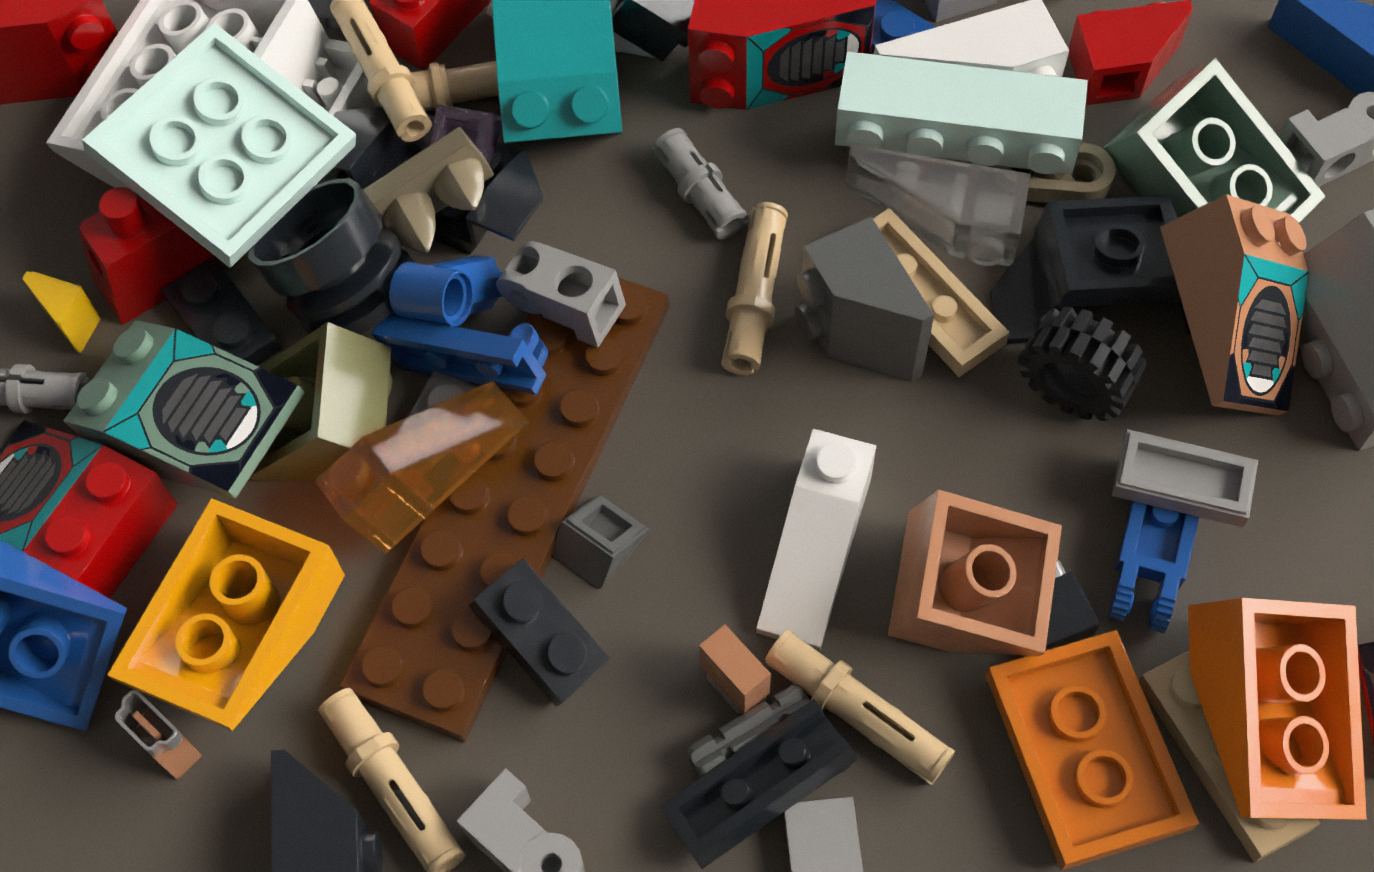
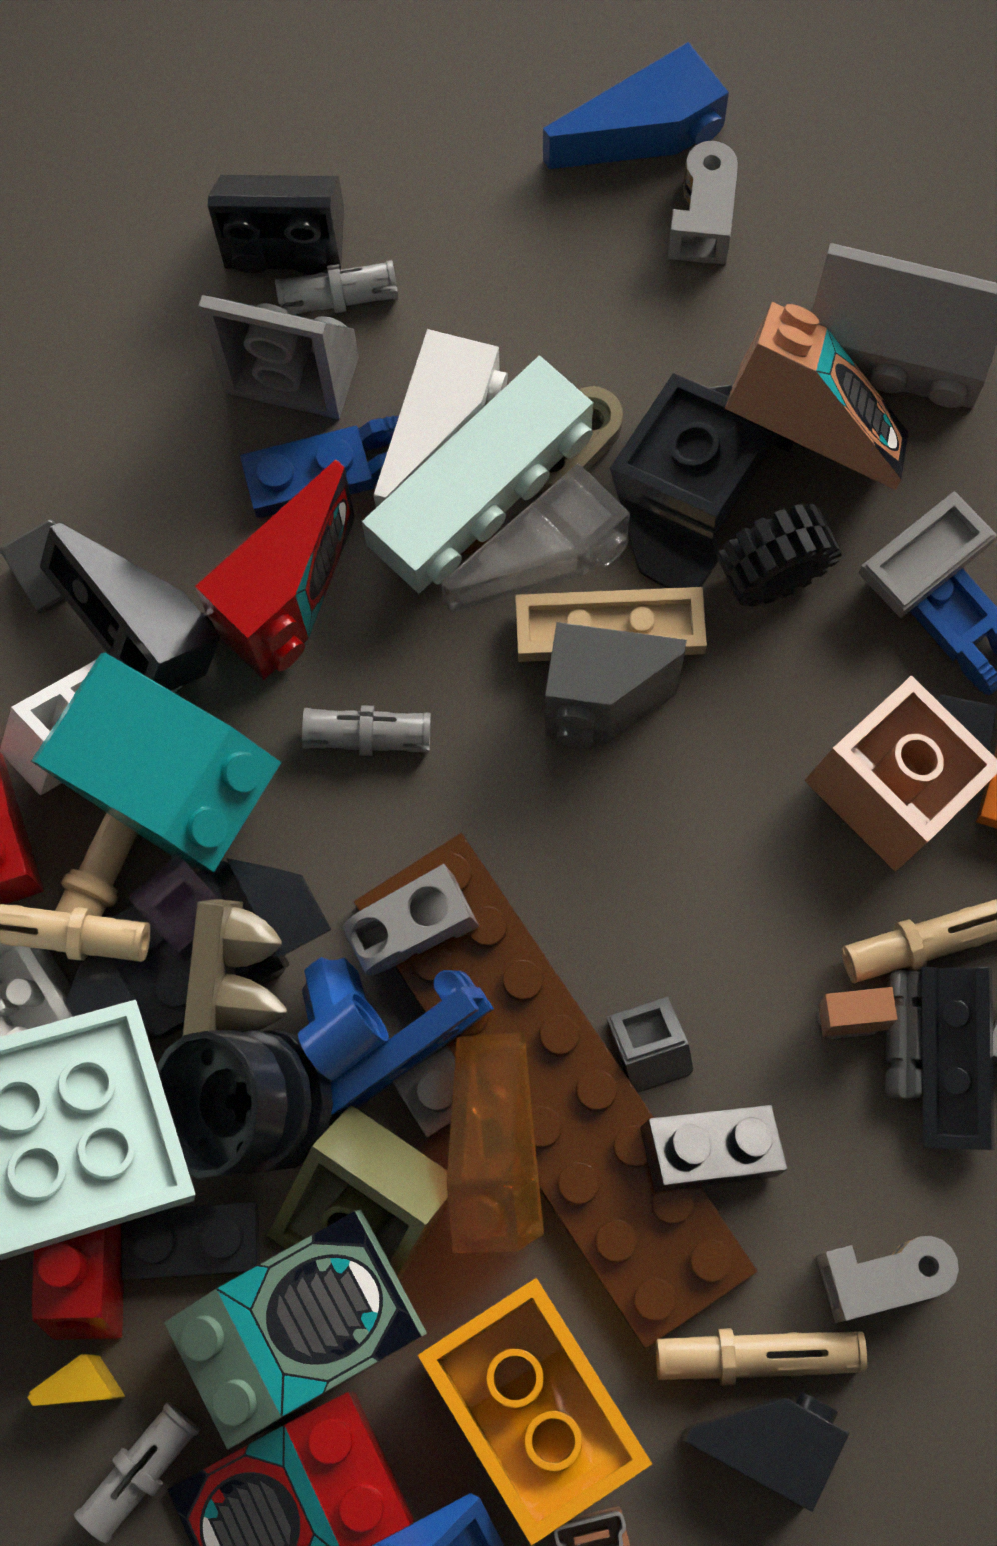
camera: 55 degrees left, 10 degrees up
(751, 307) = (526, 774): tan pin -> none
(817, 537) = (778, 867): white slope -> none
(1126, 48) = (501, 295): red slope -> none
(1207, 143) = (657, 314): sand green slope -> none

